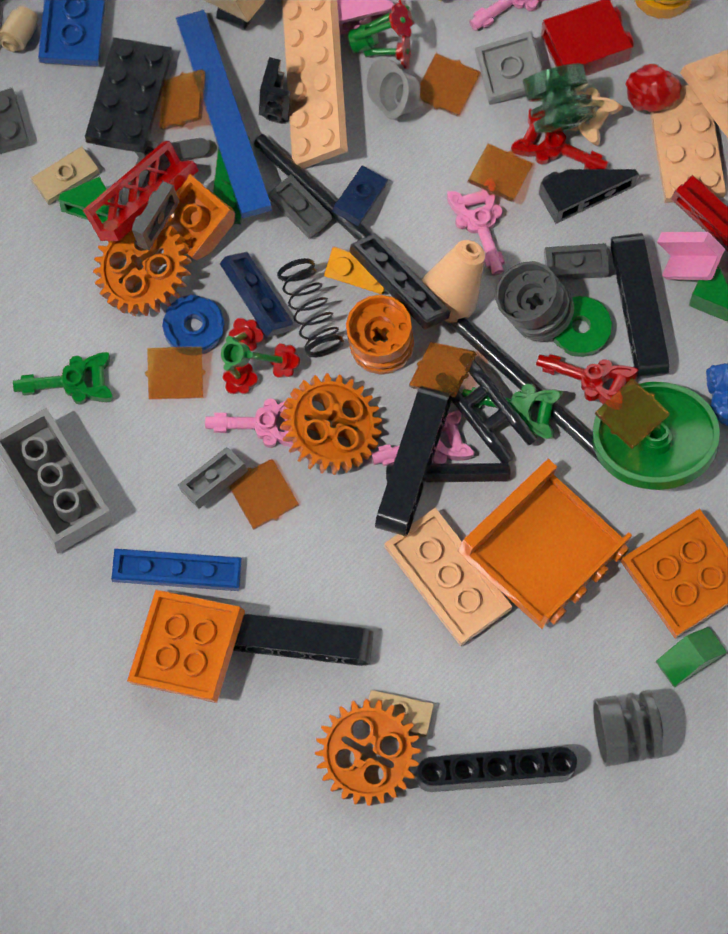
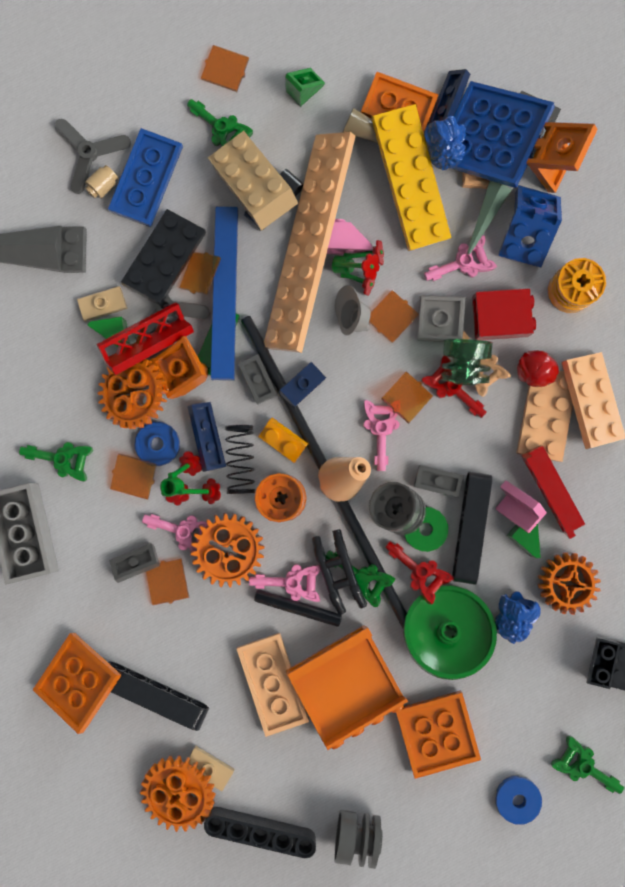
camera: 20 degrees right, 15 degrees up
(155, 216) = (146, 364): dark grey plate -> none
(176, 569) = (91, 618): blue tile -> none
(274, 99) = (262, 289): black bracket -> none
(399, 281) = (306, 464): black tile -> none
(413, 461) = (273, 599): black beam -> none
(443, 368) = (317, 534): clear orange piece -> none
(581, 189) = (457, 428): black slope -> none
(632, 413) = (438, 614): clear orange piece -> none
(690, 656) = (421, 793): green slope -> none

